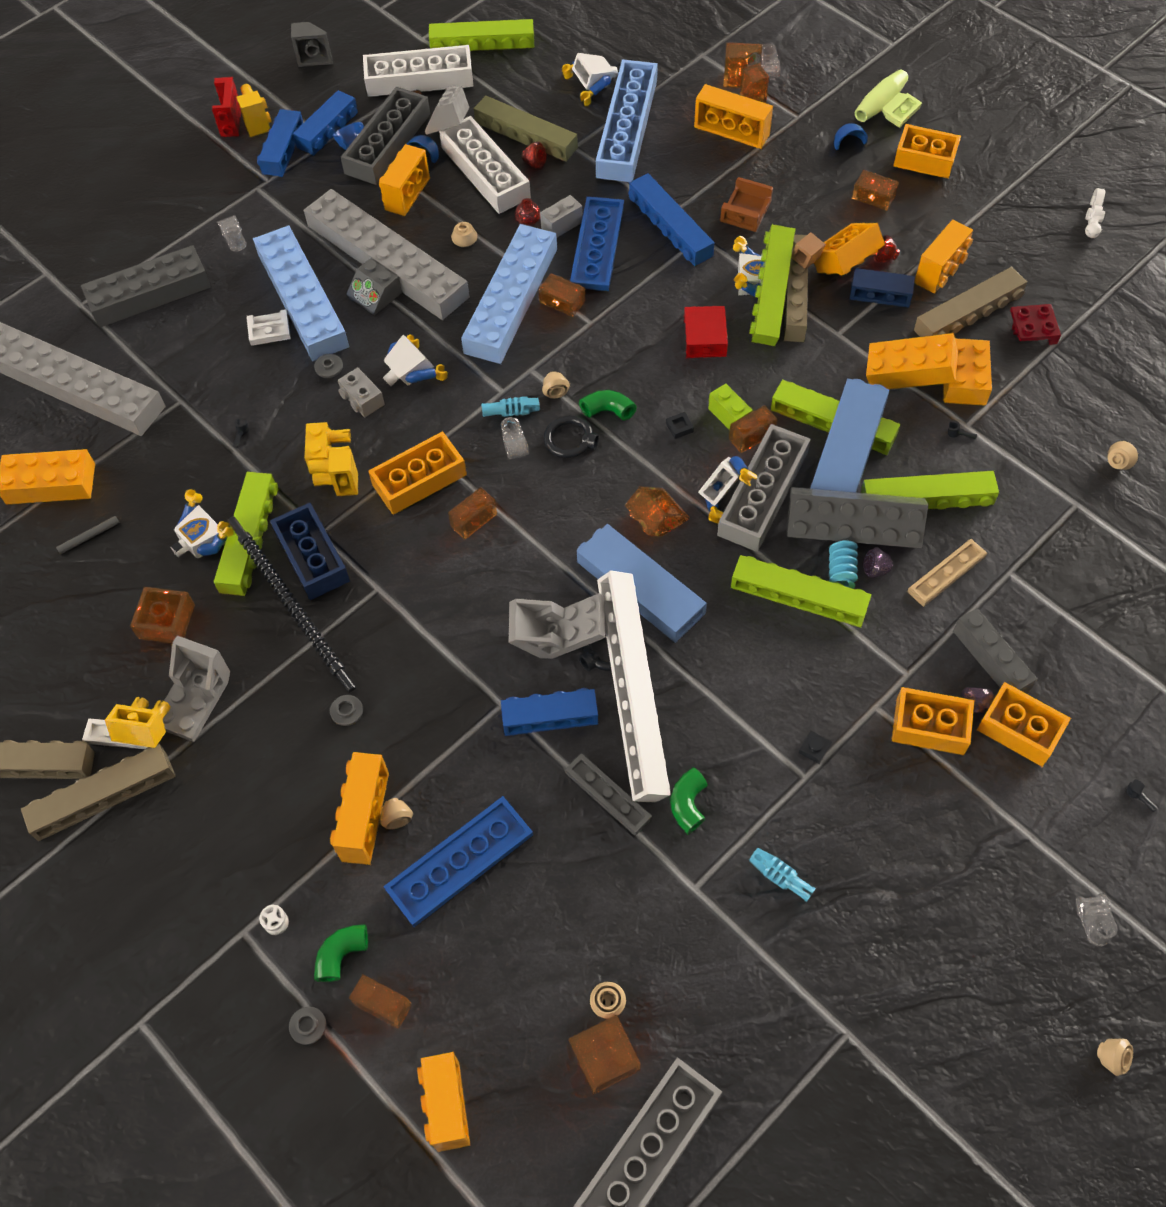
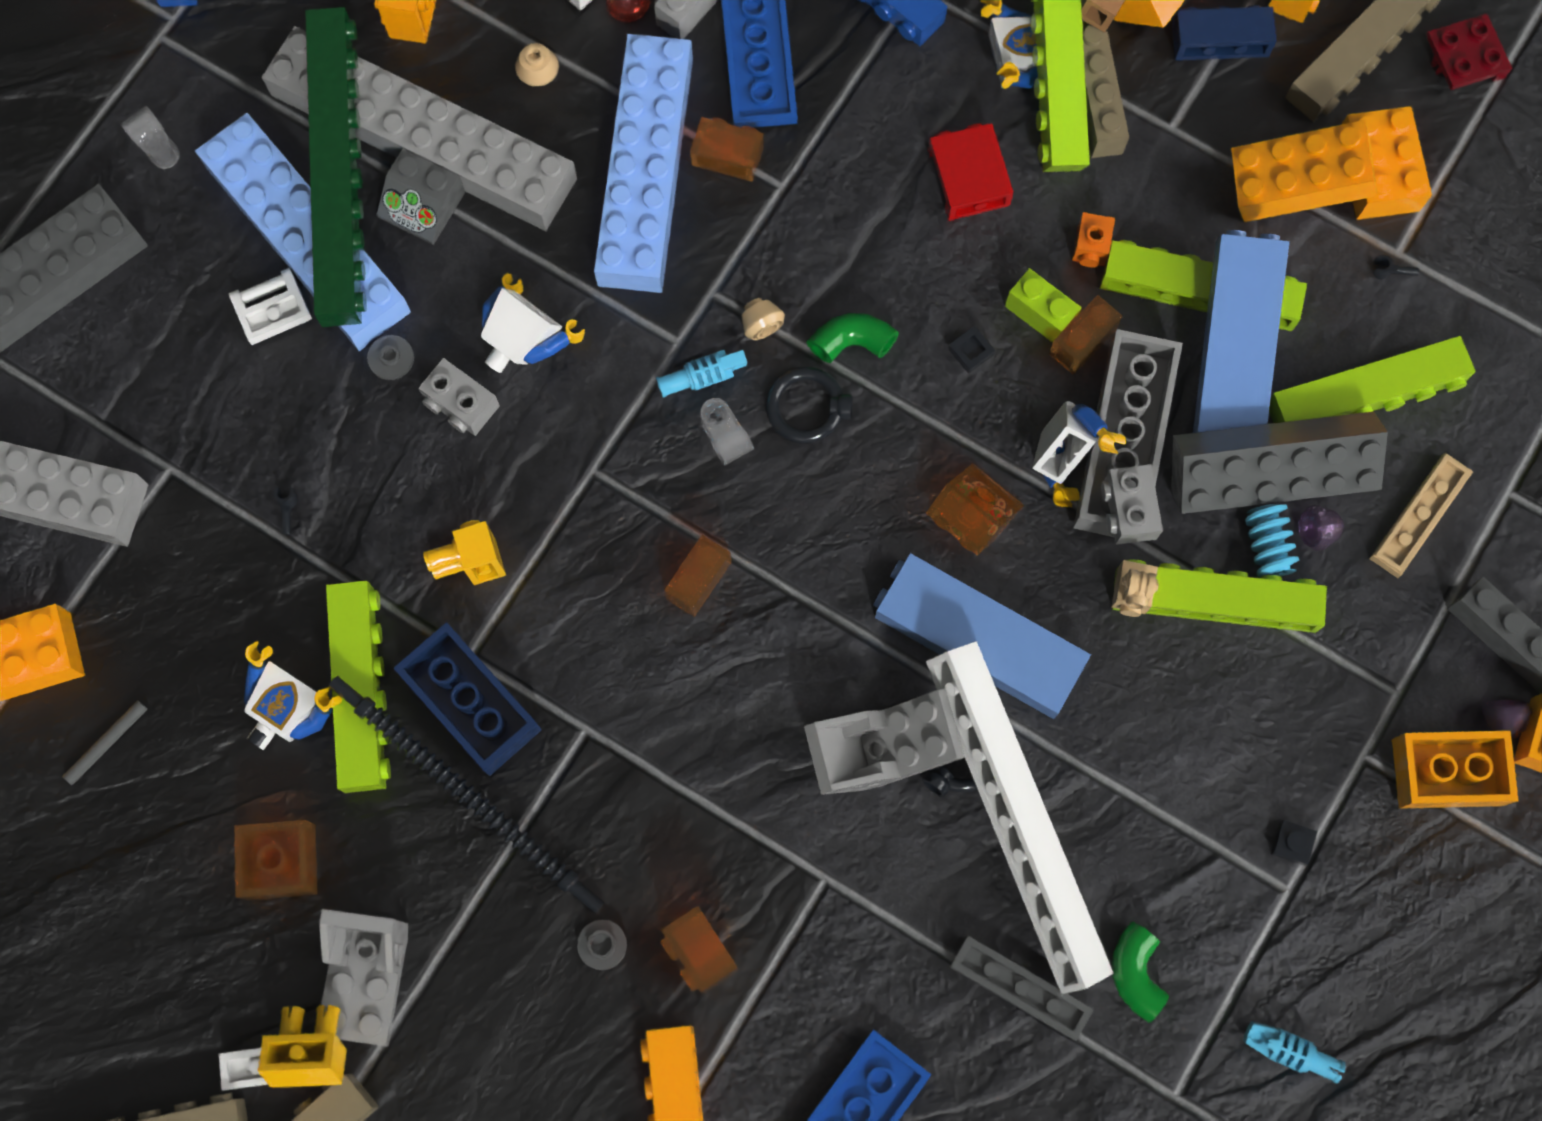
camera: 15 degrees left, 15 degrees up
(320, 439) = (424, 518): yellow brick -> none
(326, 257) = (334, 168): none -> dark green brick
(395, 814) = (725, 1094): tan cone -> none
(403, 721) = (699, 950): none -> clear orange brick
(417, 472) = (594, 525): light orange brick -> none
(549, 711) = (904, 879): blue brick -> none
(743, 566) = (1134, 588): none -> tan brick
(753, 517) = (1132, 504): none -> light grey brick
(771, 379) = (1093, 240): none -> orange brick

